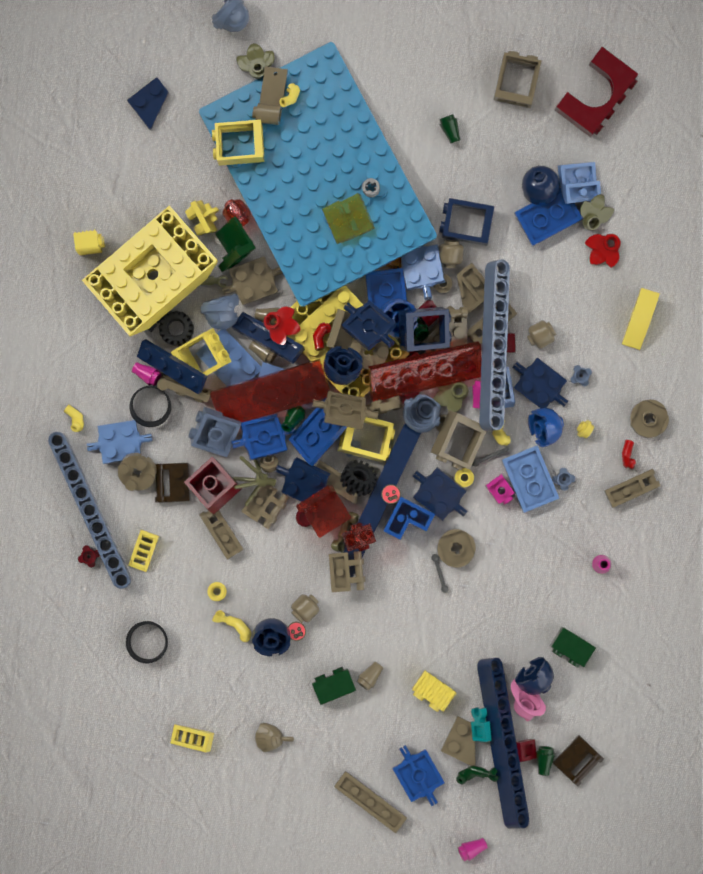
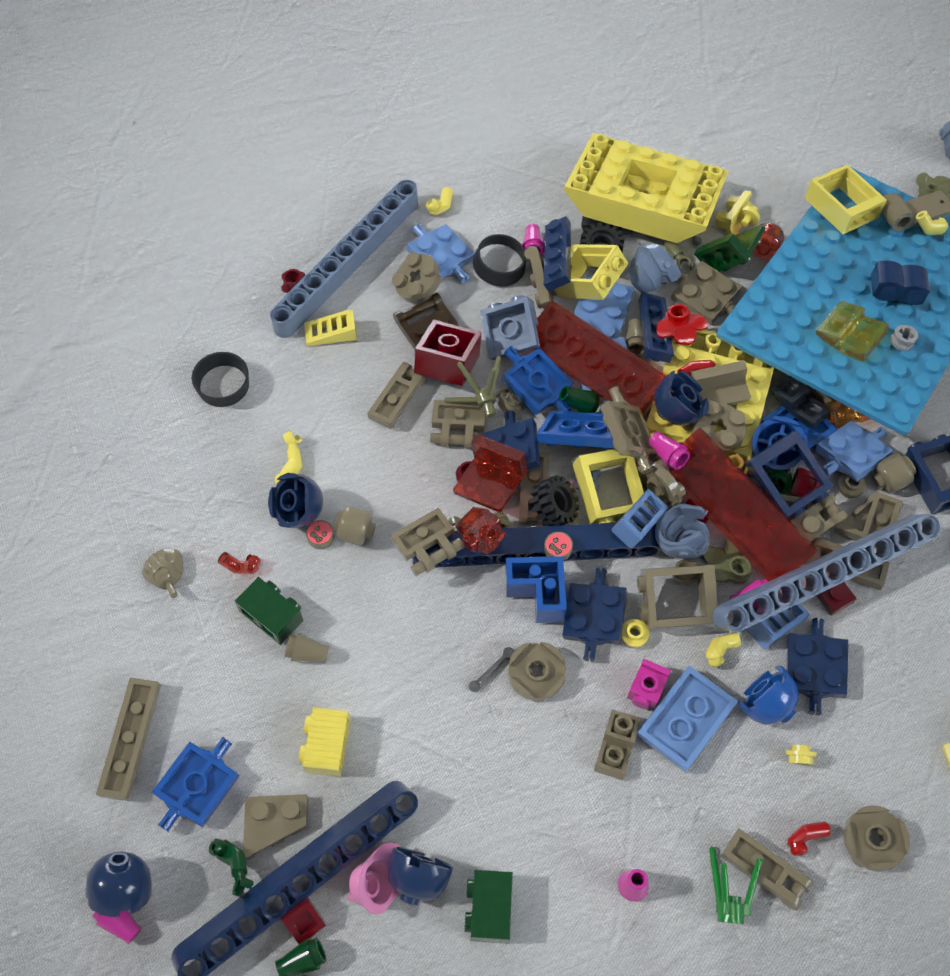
camera: 65 degrees right, 25 degrees down
(88, 242) = (635, 121): light yellow brick -> none
(149, 101) = (817, 121): dark blue wing -> none
(201, 733) = (125, 499): light yellow slope -> none
(212, 596) = (319, 418): light yellow plate -> none
(292, 692) = (236, 566): none -> clear red arm
(329, 159) = (899, 282): none -> dark blue brick
(369, 325) = (749, 404): dark blue plate -> none
(374, 394) = (670, 451): none -> dark pink cone
(375, 280) = (797, 401): none -> black slope
(400, 450) = (628, 530): none -> medium blue slope
(456, 840) = (118, 884): none -> dark blue cylinder
(476, 462) = (702, 666): dark grey hinge -> none
(480, 727) = (305, 831): teal plate -> none
(522, 527) = (617, 744): none -> dark tan slope
(541, 334) = (880, 629): dark tan head -> none
(563, 484) = (723, 760): sand blue plate -> none
(585, 372) = (872, 709): sand blue plate -> none
(640, 521) = (730, 907): none -> green plant

